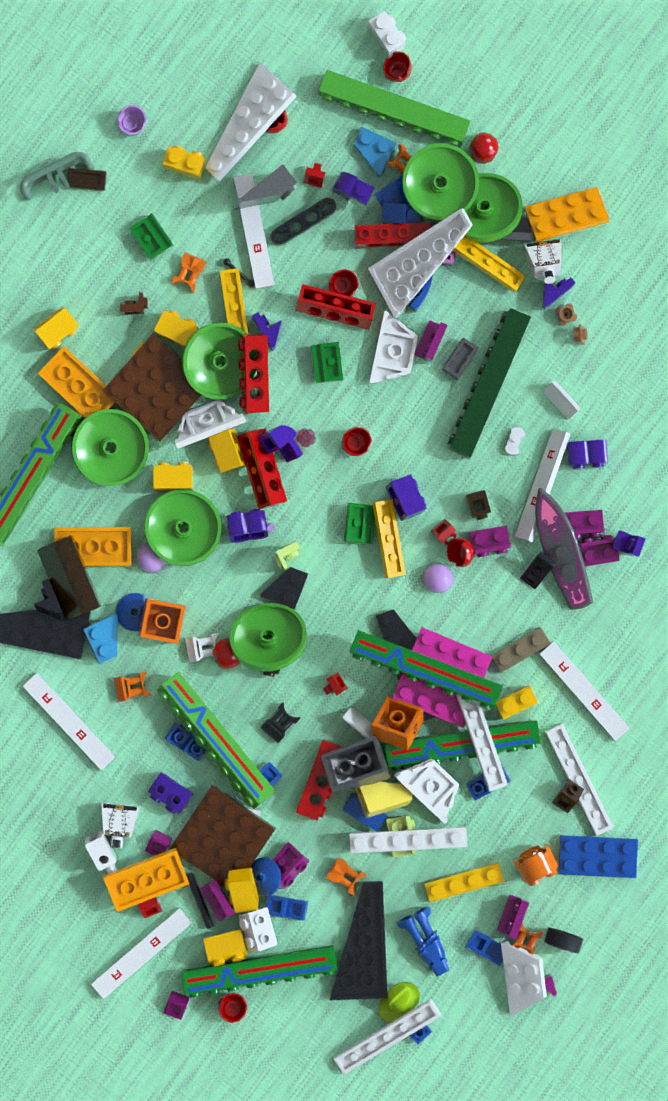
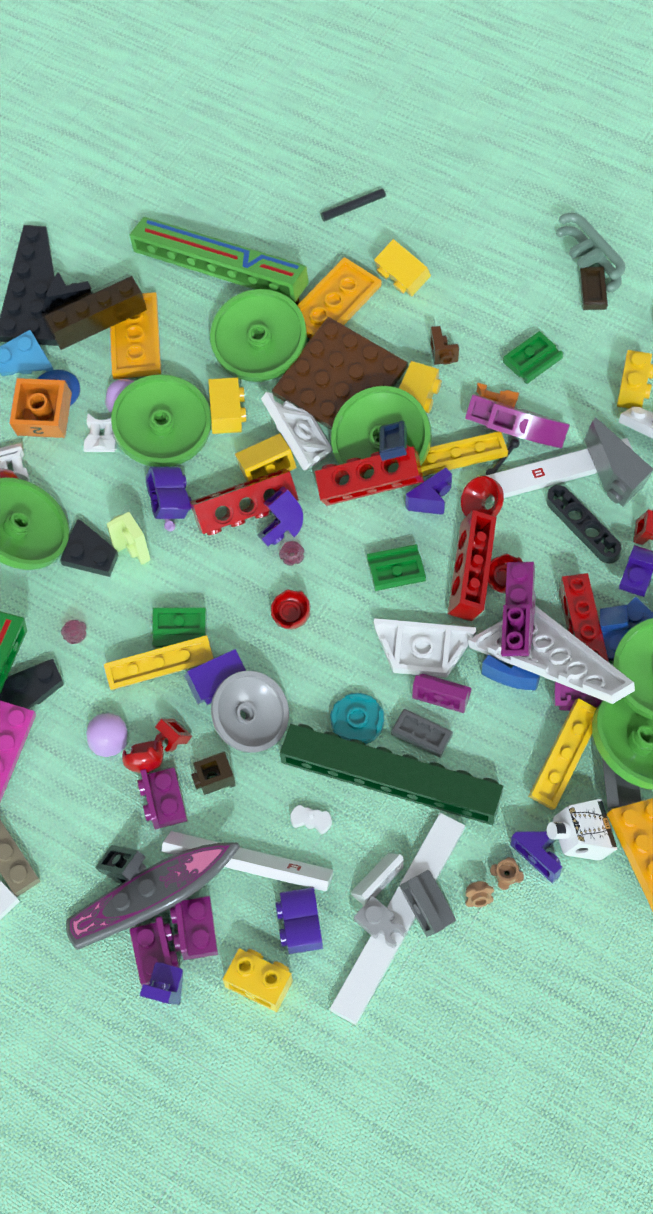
camera: 90 degrees right, 25 degrees down
(193, 576) = (98, 443): none -> white piece
(216, 257) = (517, 422): none -> magenta slope
(235, 351) = (393, 440): none -> dark blue tile
(281, 299) = (478, 491): none -> red piece
(355, 600) = (74, 631): none -> clear pink plate
(382, 278) = (518, 609): none -> magenta slope
(440, 468) = (264, 708): none -> light grey dish
(443, 402) = (357, 718): none -> teal tile
(584, 368) = (427, 903): none -> dark grey panel
(588, 388) = (377, 954): none -> white tile
(592, 403) = (377, 919): none -> light grey plate
(624, 483) = (258, 979): none -> yellow brick

